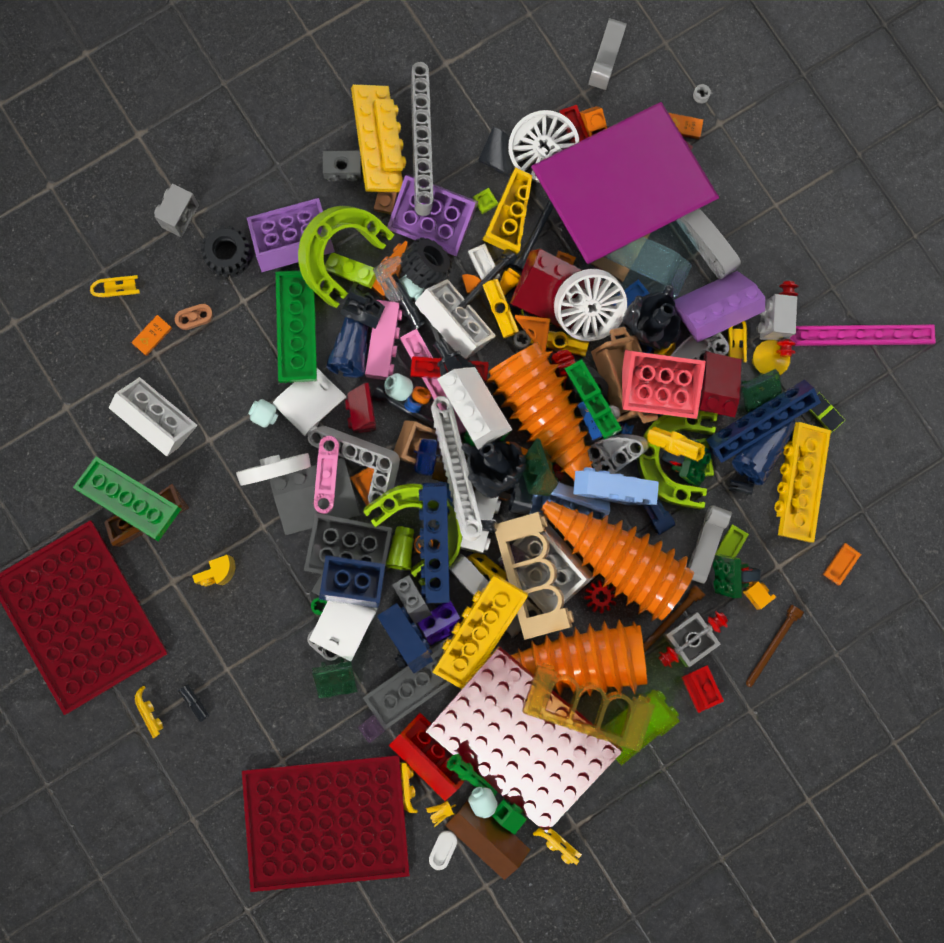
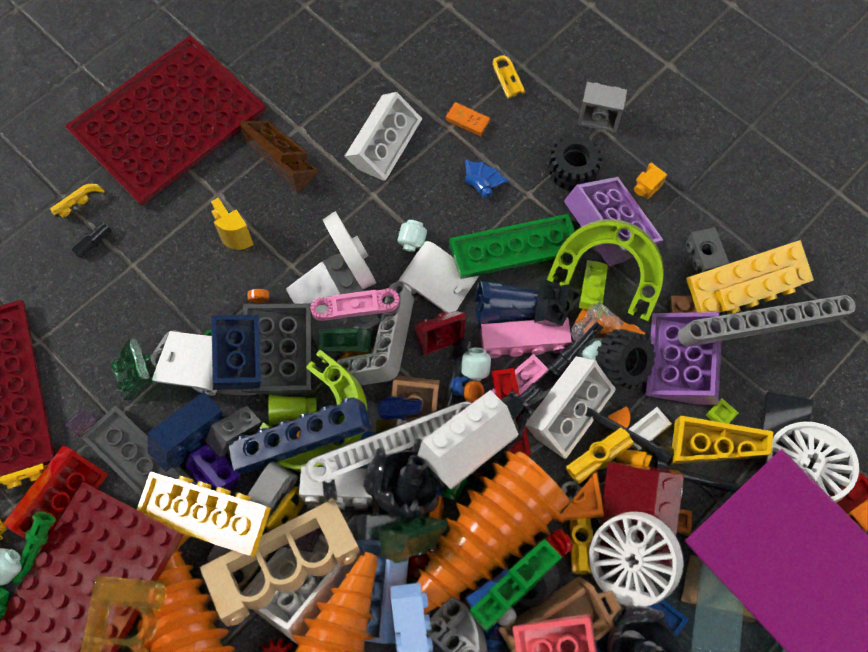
camera: 85 degrees right, 15 degrees down
(127, 498) = (289, 126): green plate -> none
(194, 316) = (498, 152): nougat plate -> none
(217, 336) = (483, 177): none -> blue arm
(260, 191) = (650, 181): none -> light orange brick
(289, 560) = (258, 296): none -> orange tile
(357, 490) = (345, 340): none -> clear green brick

